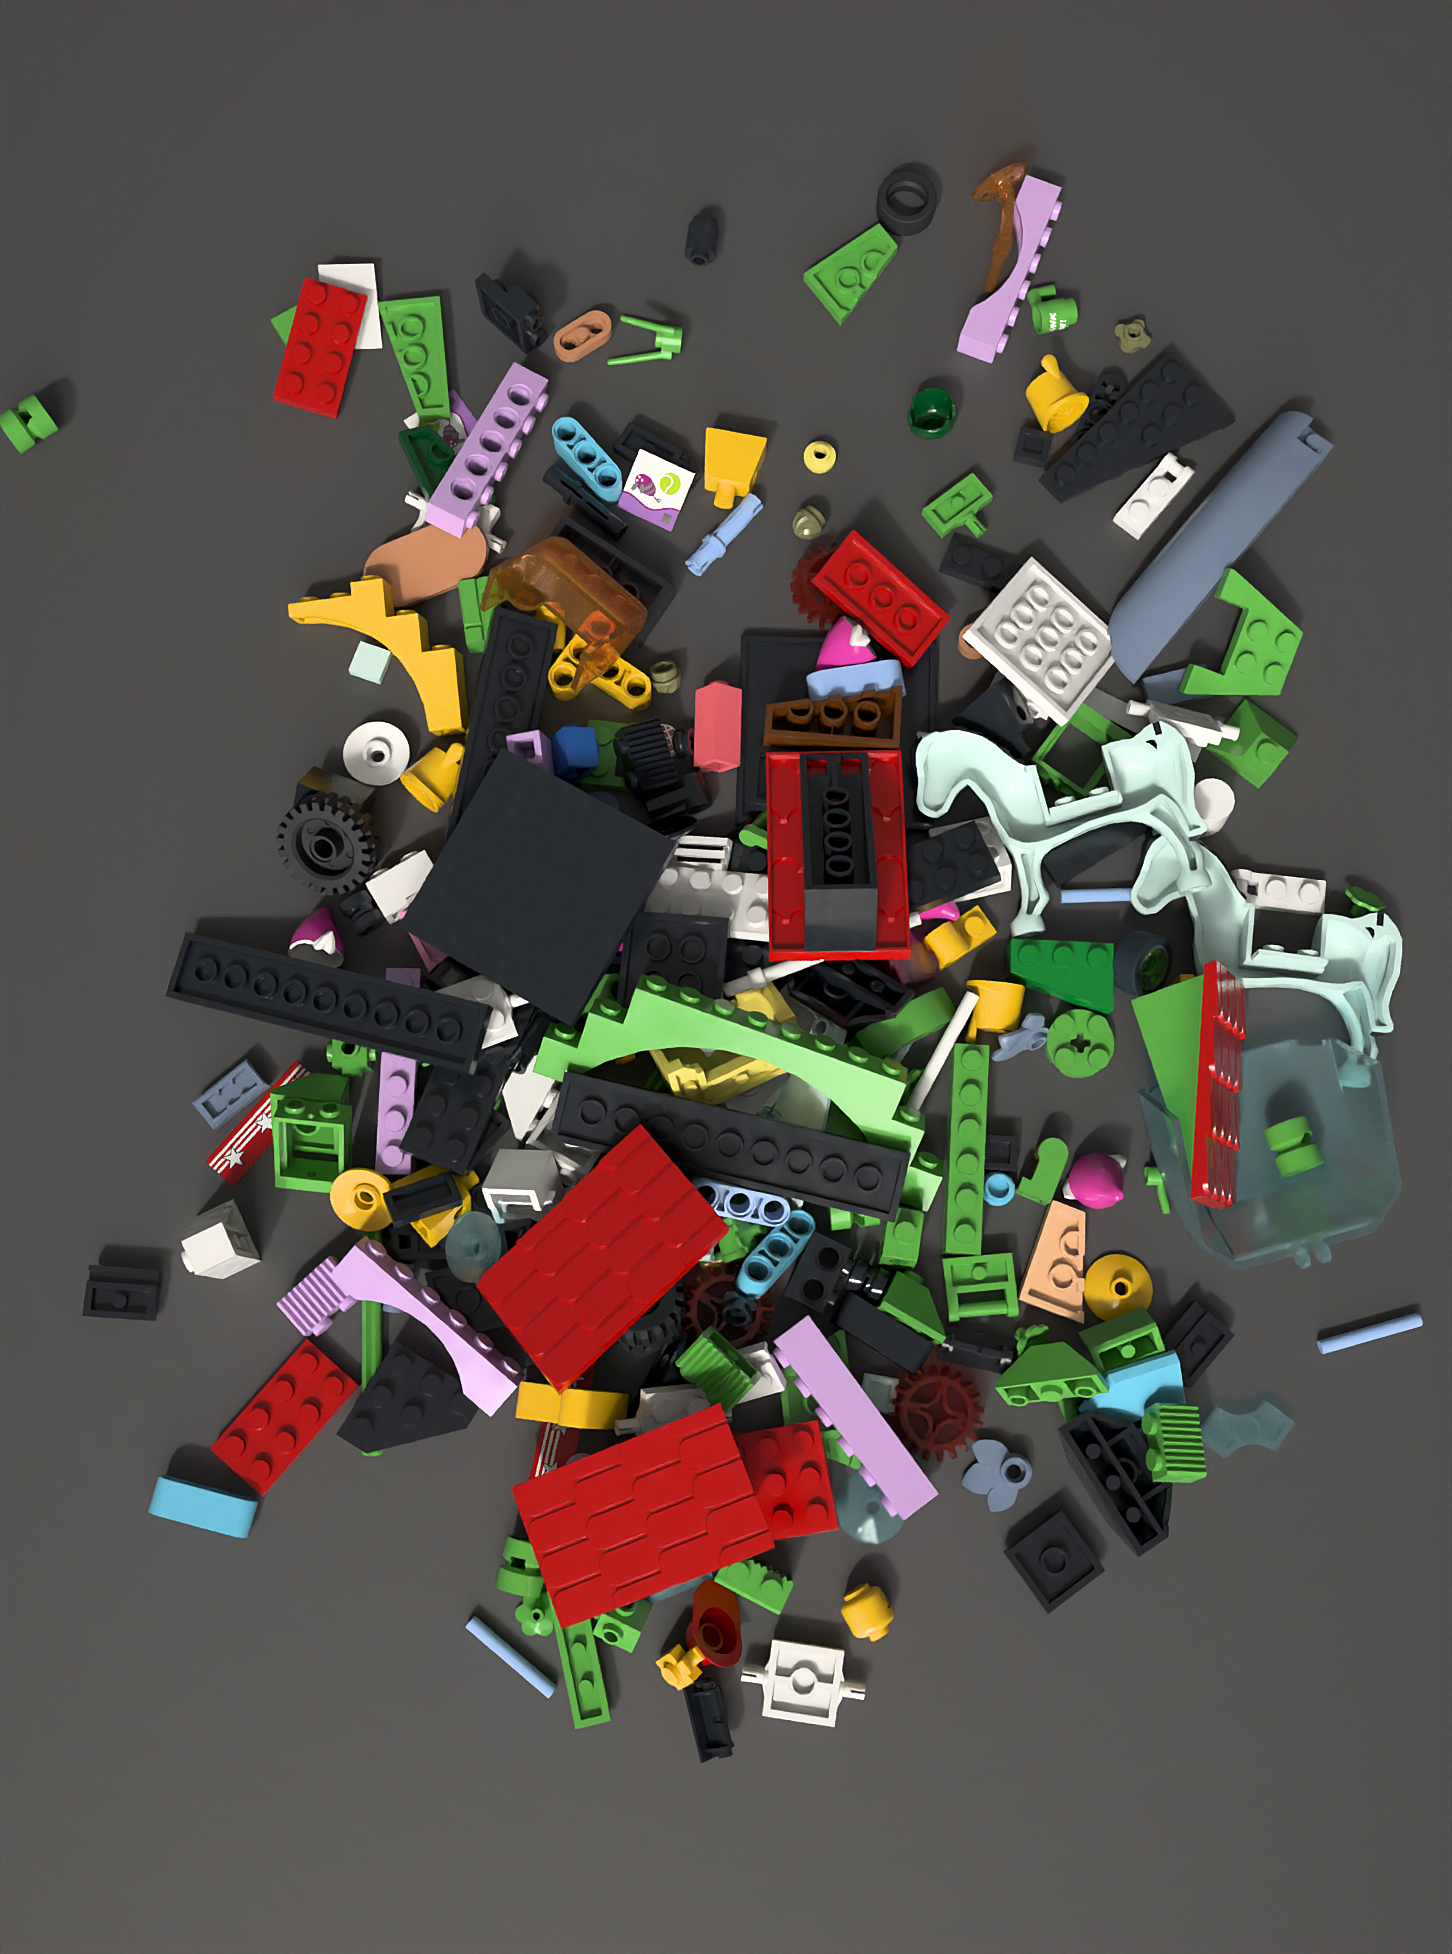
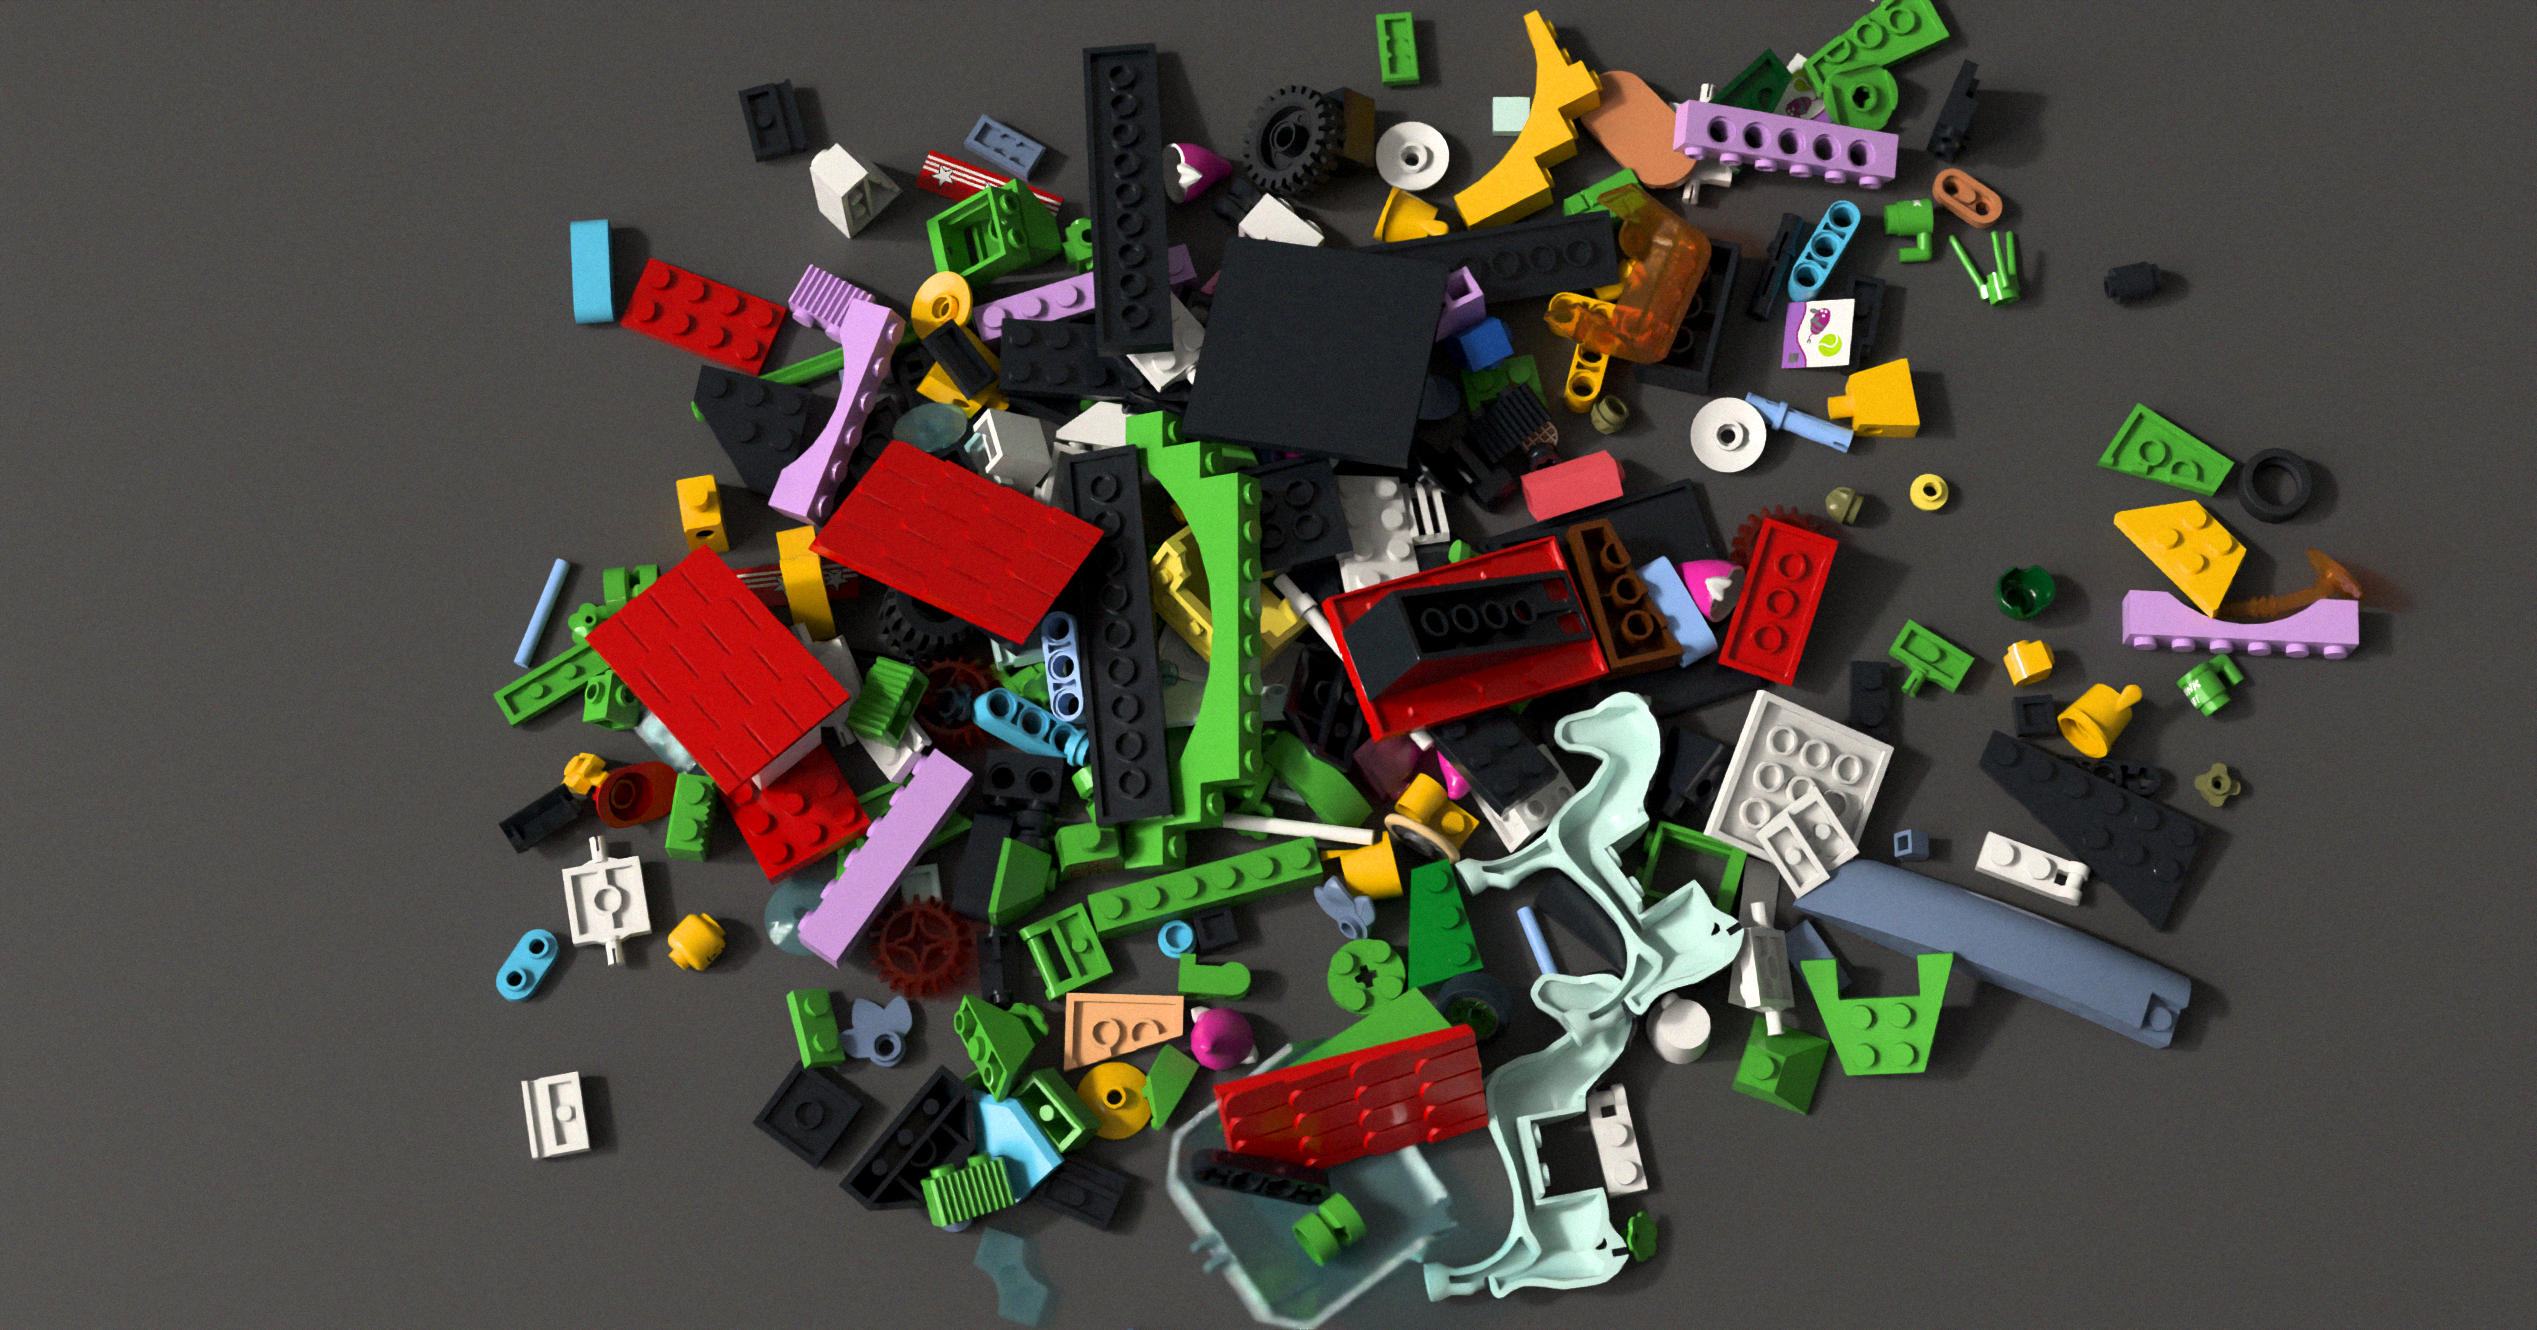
camera: 70 degrees right, 5 degrees down
(273, 732) = (1397, 49): none -> bright green plate
(457, 395) = (1871, 78): none -> bright green plate
(475, 1479) = (702, 511): none -> yellow torso
(584, 384) = (1909, 219): none -> bright green piece
(725, 576) = (1734, 416): none -> white dish
(814, 1214) = (1078, 749): none -> medium azure plate
(837, 1774) = (529, 965): none -> medium azure plate
(938, 282) = (2187, 548): none -> yellow wing
(979, 1529) = (815, 1027): none -> bright green plate
(984, 954) = (1421, 838): none -> wheel
(985, 1792) = (556, 1116): none -> white plate
(989, 433) = (2029, 662): none -> yellow plate
(1090, 650) = (1806, 842): none -> white slope
(1111, 569) = (1916, 841): none -> sand blue piece
(1122, 1239) = (1167, 1083): none -> bright green slope
(1242, 1188) = (1221, 1169): none -> black beam

